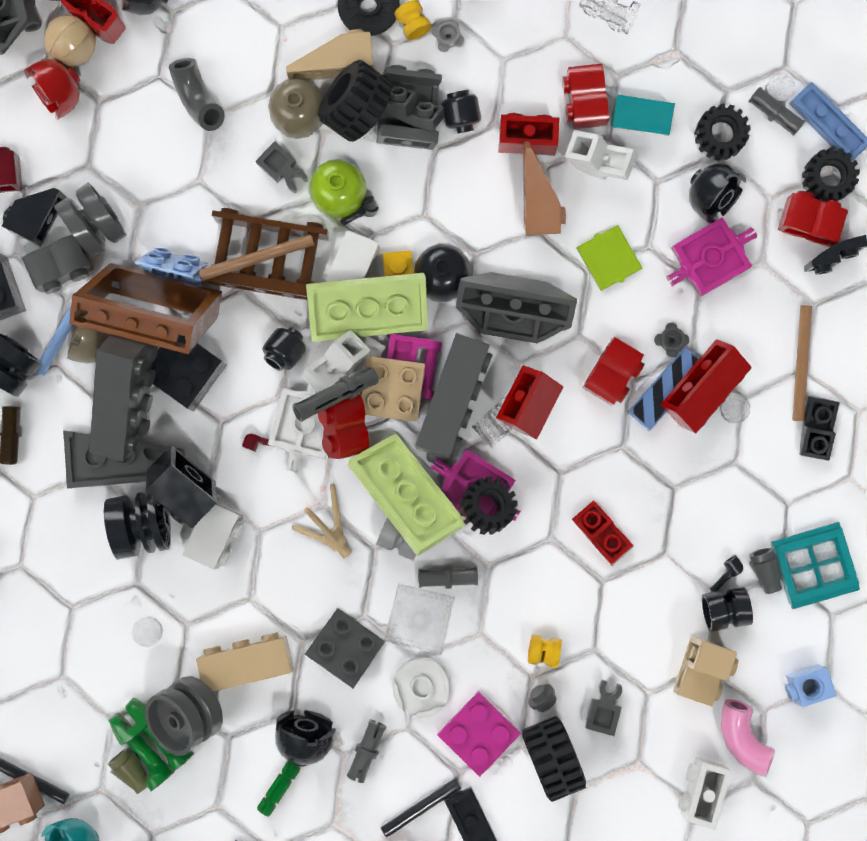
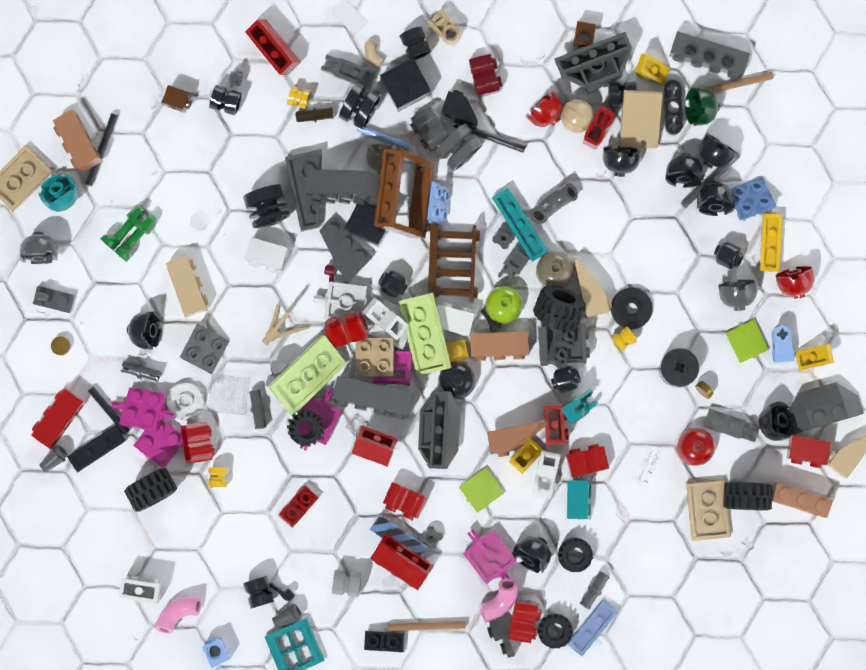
camera: 90 degrees right, 0 degrees up
(87, 171) = (492, 137): none -> black bar
(128, 770) = (111, 222): olive cone -> none
(180, 487) = (293, 231): black brick -> none
(183, 715) = (150, 252): dark grey wheel -> none
(221, 150) = (519, 224): none -> teal plate
(224, 414) = (345, 250): none -> dark grey wing
(241, 184) = (508, 238): none -> dark grey plate
(256, 257) = (448, 257): medium nougat bar -> none
(278, 789) = (110, 318): green axle -> none
(346, 388) = (369, 328): dark grey pin -> none
(398, 201) = (499, 345): none -> nougat brick
(426, 754) = (143, 409): none -> dark pink plate
(450, 27) = (620, 359): light grey plate -> none
(488, 676) = (197, 442): none -> red brick
(506, 96) = (579, 407): none -> teal hinge
(542, 698) = (187, 479): dark grey plate -> none
(570, 183) = (526, 456): none -> yellow slope
(603, 713) = (182, 520): dark grey plate -> none
(703, 669) = (217, 581): tan brick -> none
(728, 473) = (346, 583): none -> light grey wheel
(781, 246) = (501, 602): none -> bright pink cylinder

